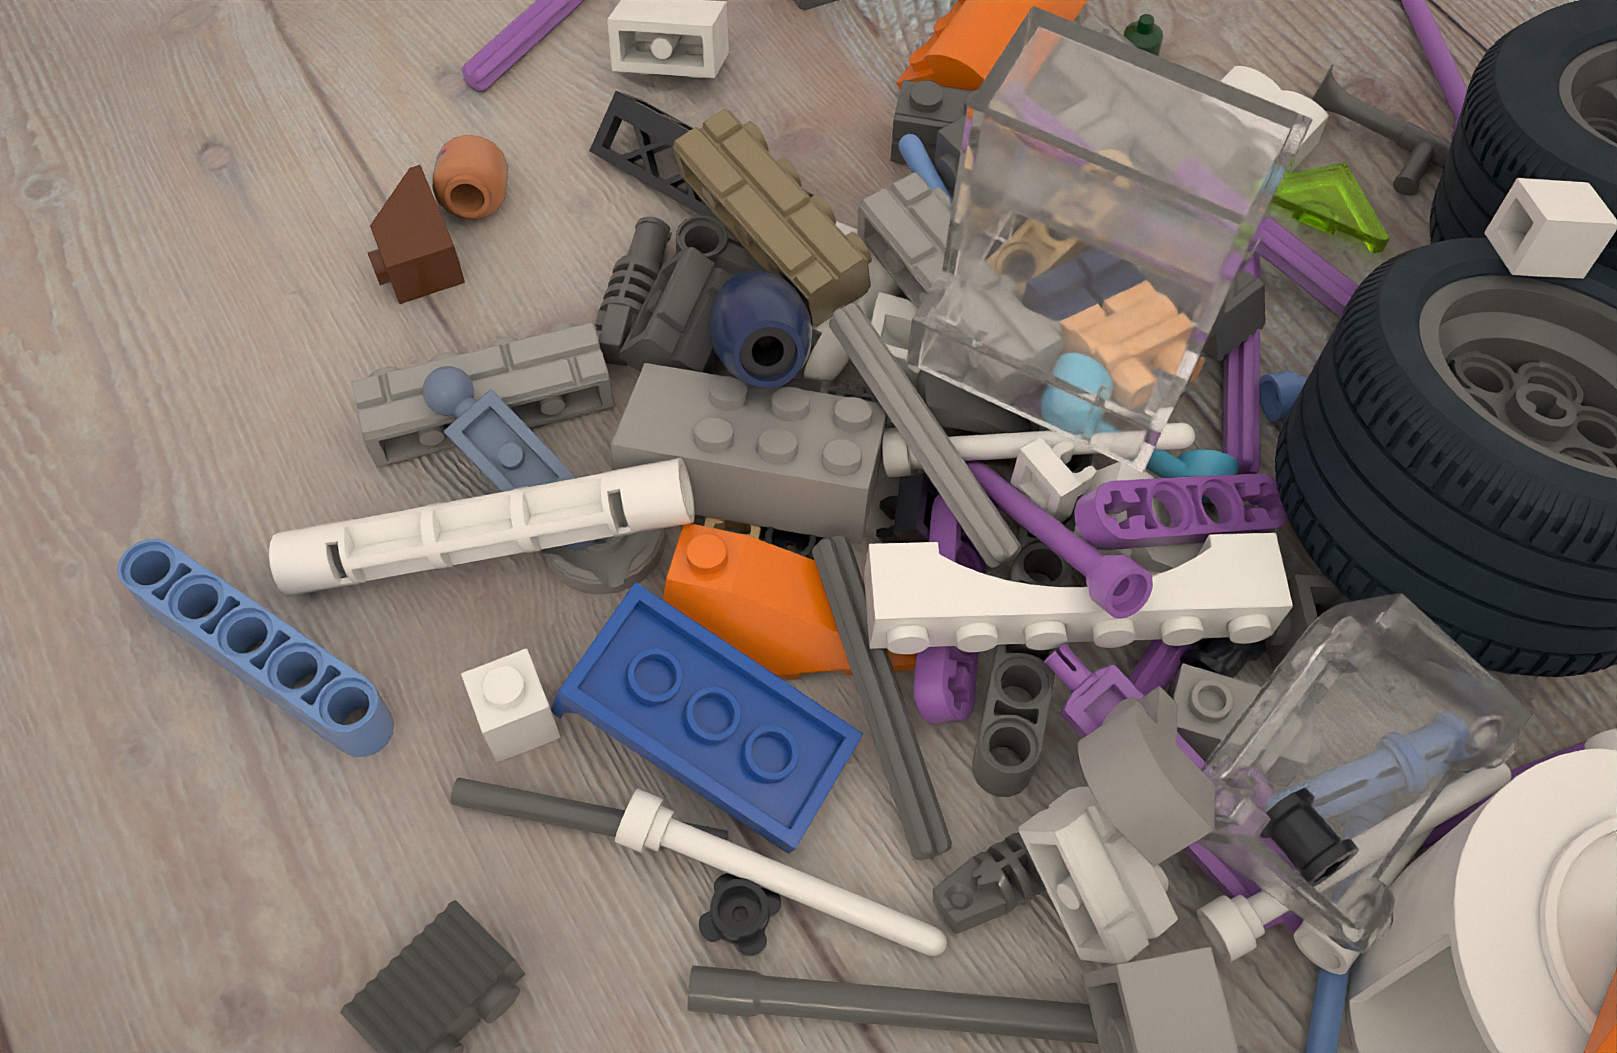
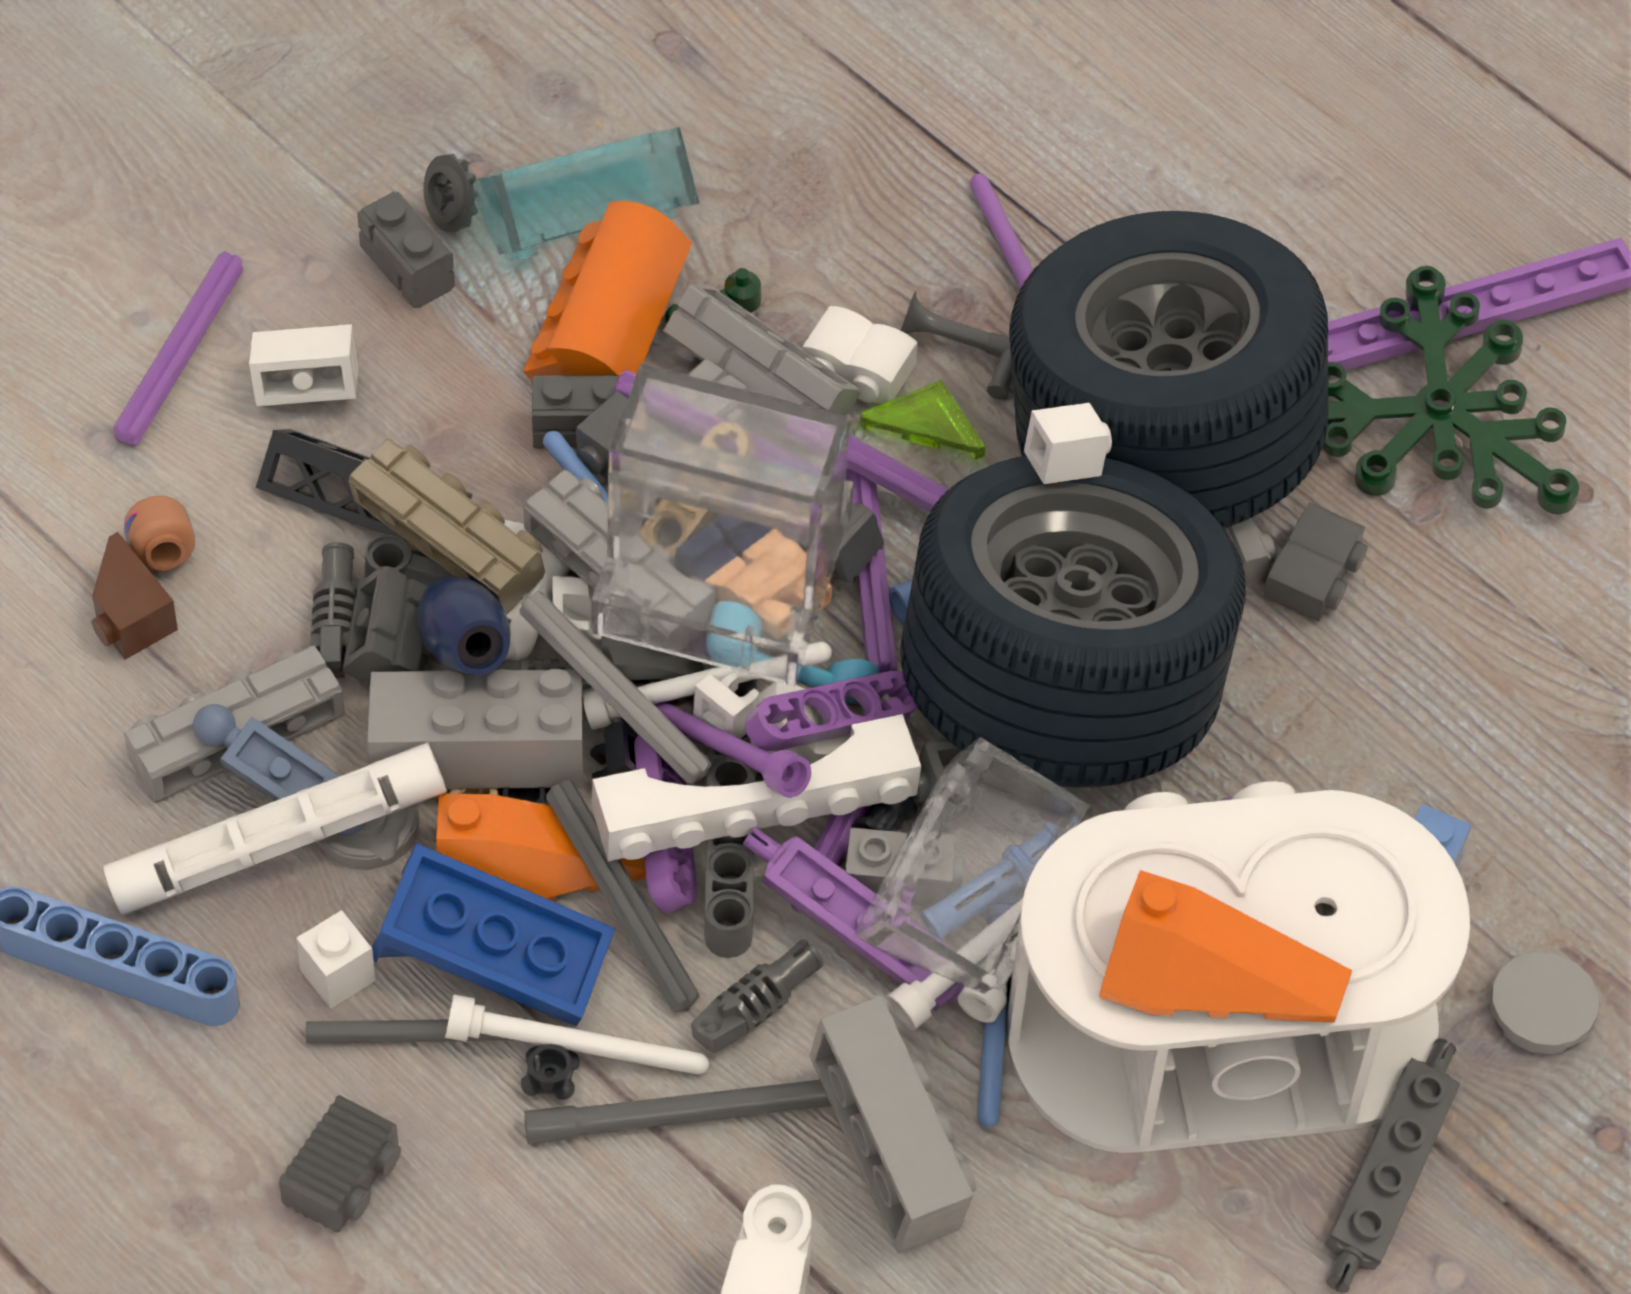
camera: 15 degrees left, 5 degrees down
(1097, 879) = (805, 978): white brick -> none
(1146, 779) = (827, 903): light grey brick -> none
(1307, 838) = (948, 924): black bush -> none

